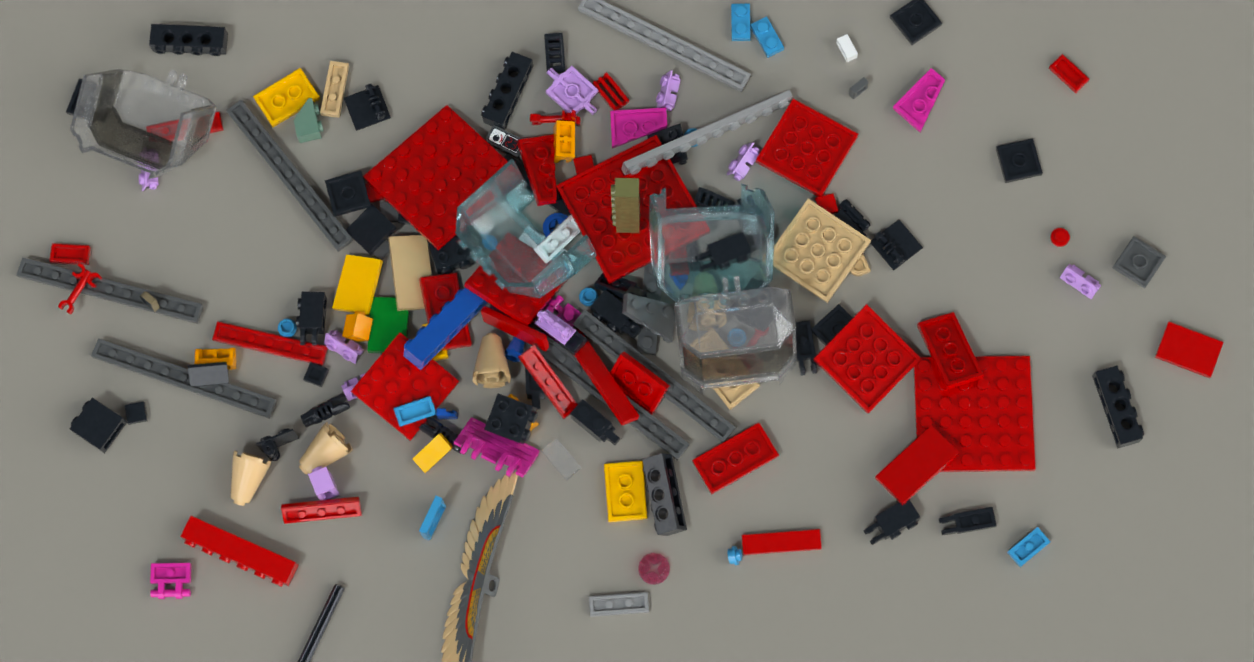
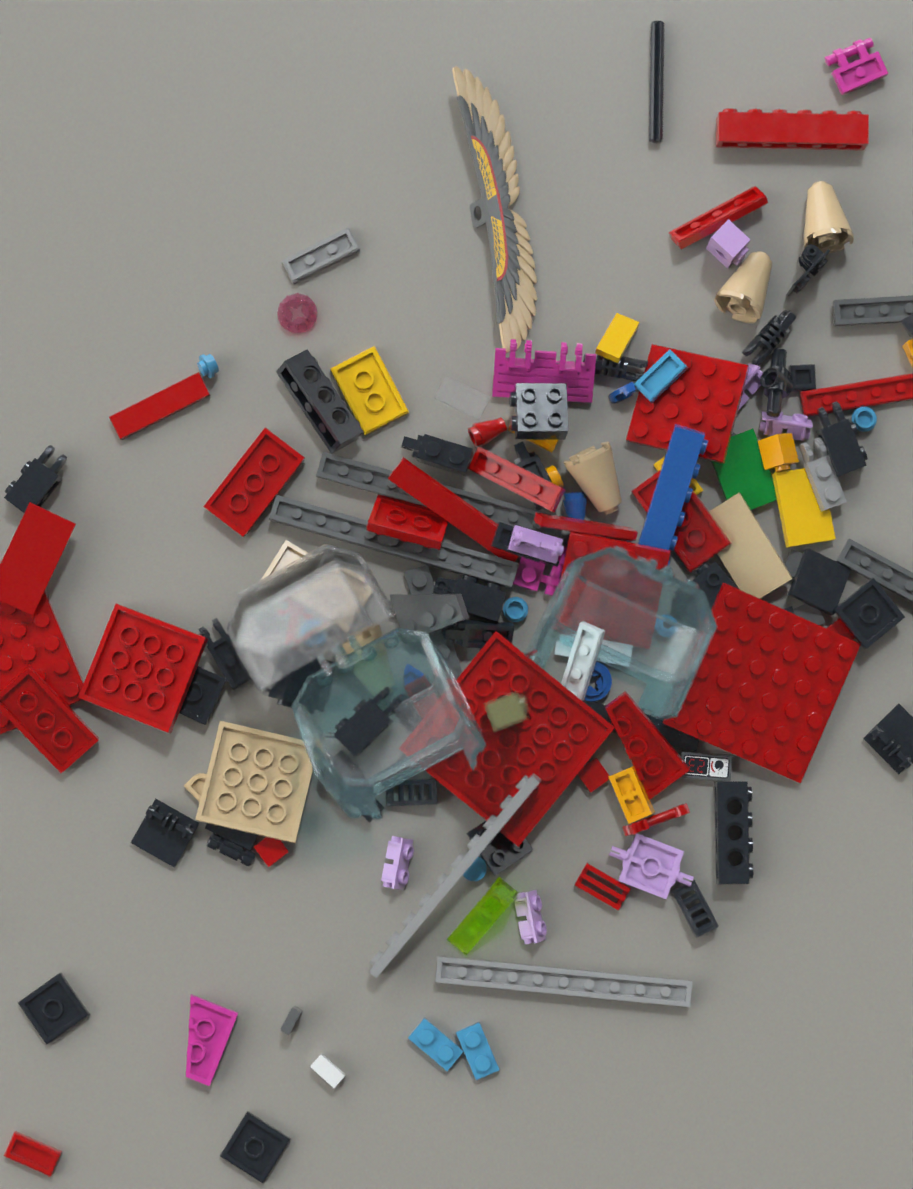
camera: 150 degrees right, 10 degrees up
(333, 369) = (776, 382): none -> black axle
(335, 298) = (822, 475): none -> light grey hinge
(432, 518) = (581, 251): dark azure tile -> none
(521, 374) = (554, 475): none -> light orange tile
(555, 426) = (484, 432): none -> red cone
(635, 124) = (552, 856): dark pink wing -> none
(698, 104) = (482, 915): none -> clear neon green slope
(807, 148) = (324, 913): red plate -> none

